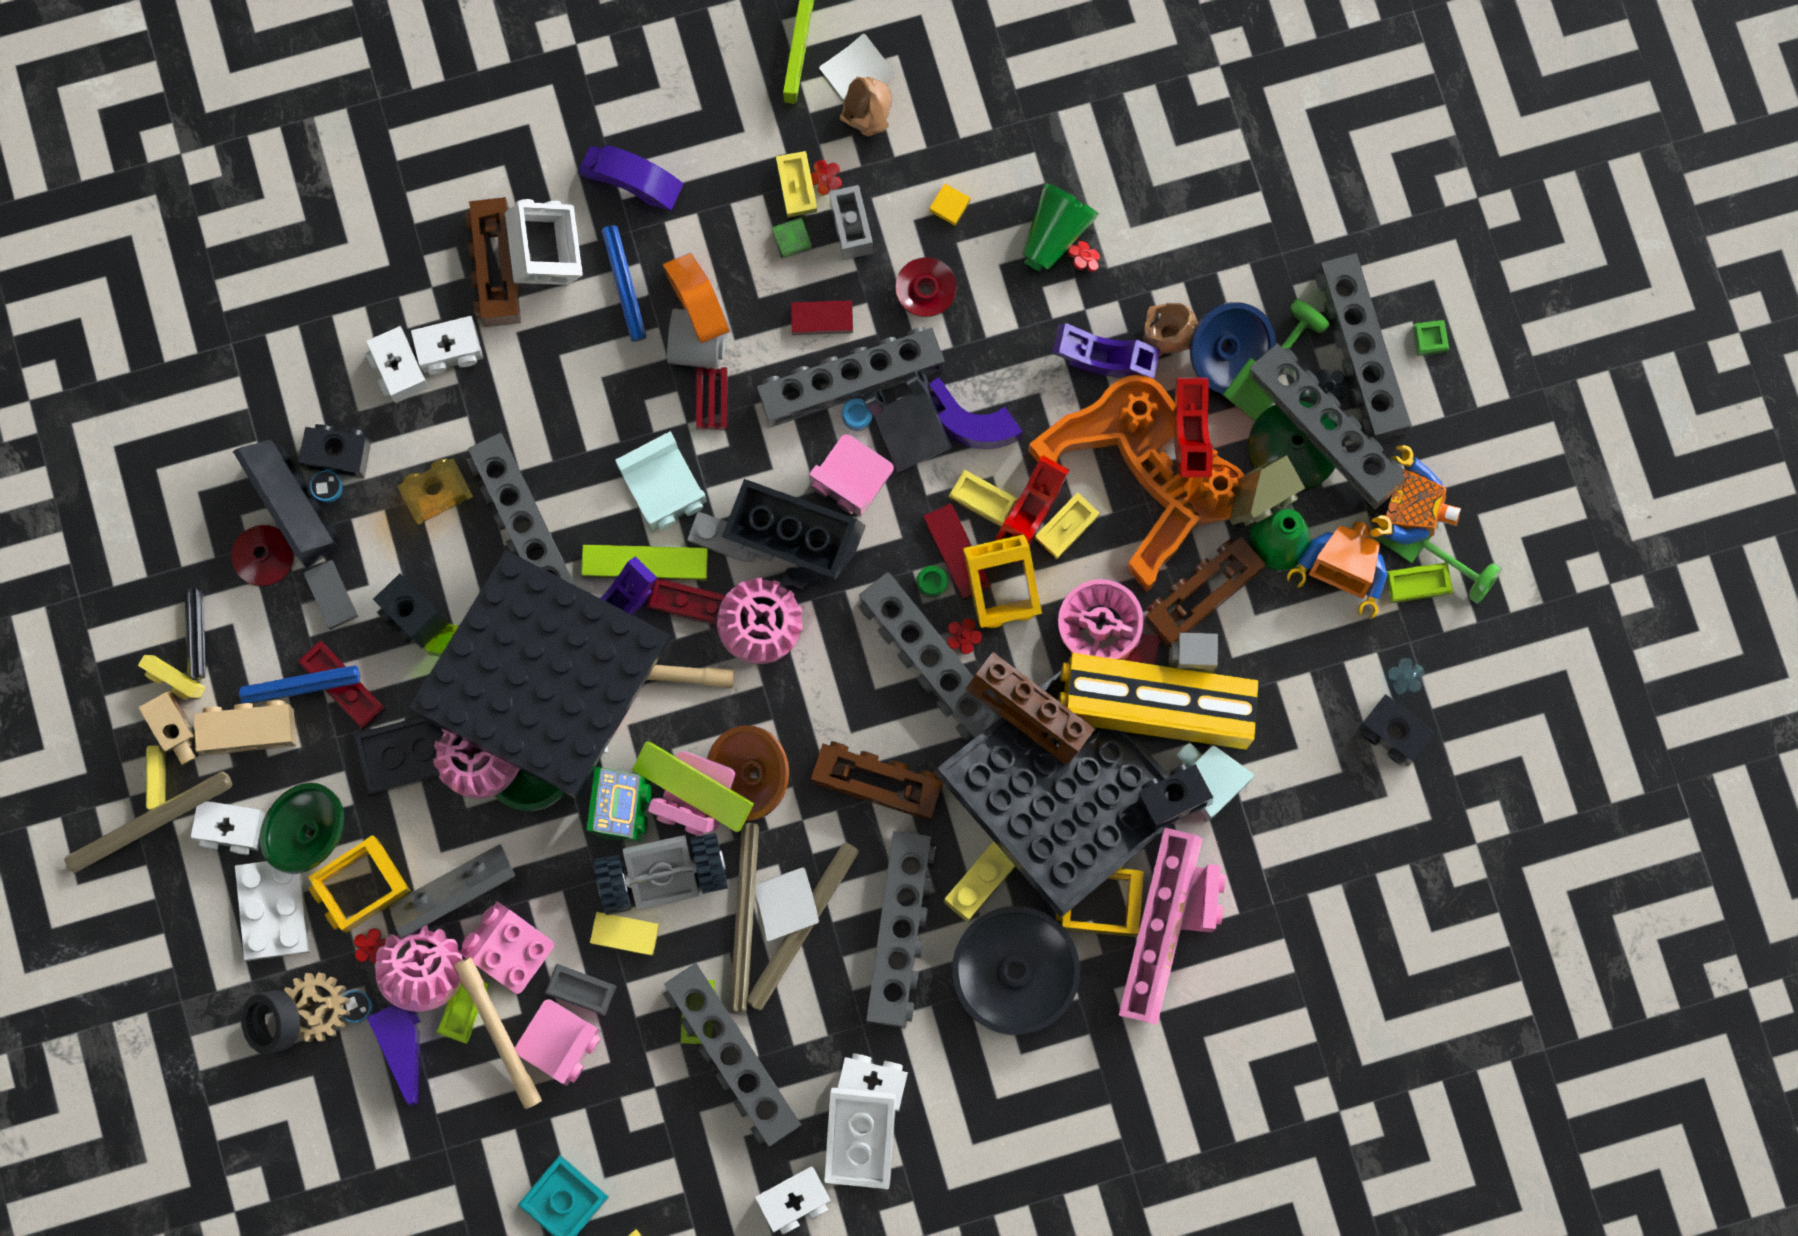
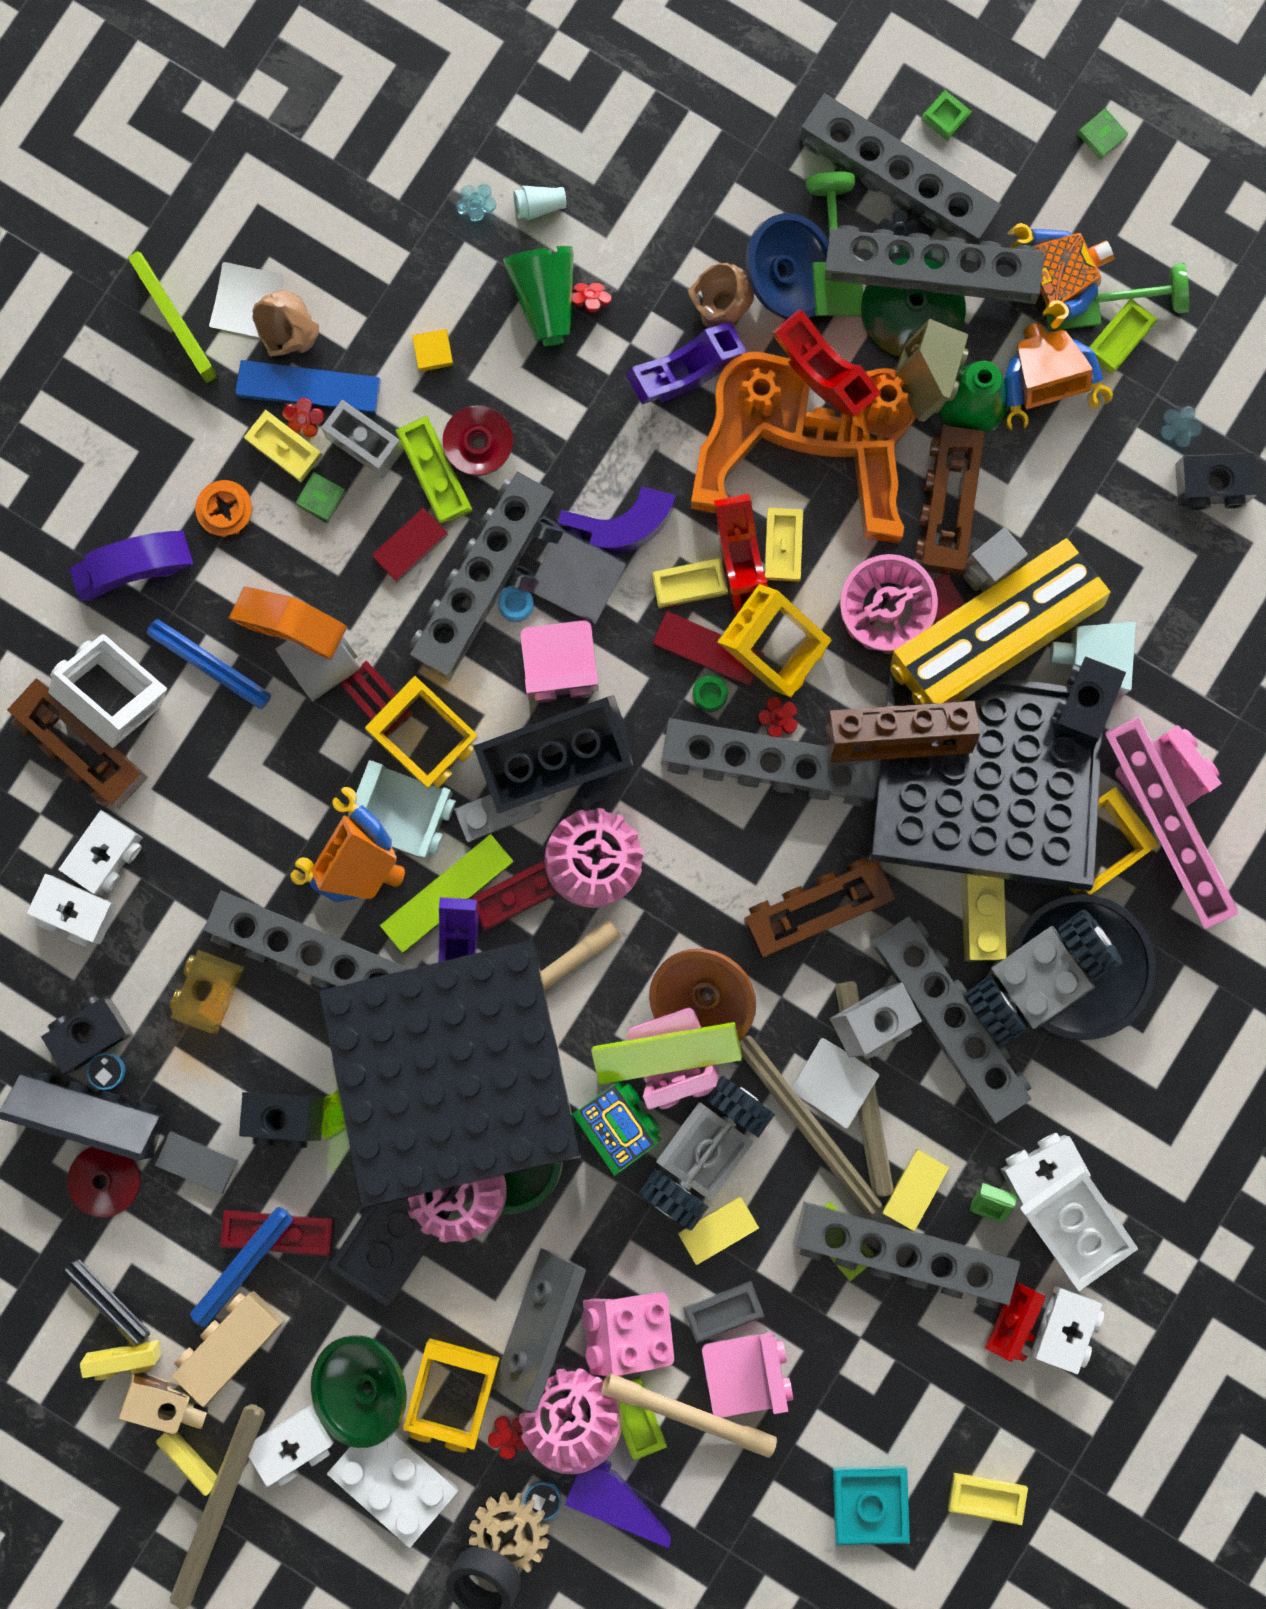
camera: 40 degrees left, 5 degrees up
(604, 486) = (354, 859): none -> orange torso
(714, 181) = (208, 504): none -> orange gear
(719, 413) = (397, 707): none -> yellow window
(765, 1163) = (1015, 1323): none -> red plate
(776, 1021) = (915, 1189): none -> light yellow tile
(819, 1074) = (993, 1203): none -> bright green tile
(853, 164) = (321, 387): none -> blue tile
(866, 890) = (857, 1027): none -> light grey brick
(880, 283) = (434, 470): none -> lime tile
(982, 951) = (1043, 977): none -> plate
(1065, 132) = (476, 202): none -> clear light blue plant
(1105, 166) = (537, 201): none -> light aqua cone
(1526, 438) = (1103, 133): none -> bright green tile

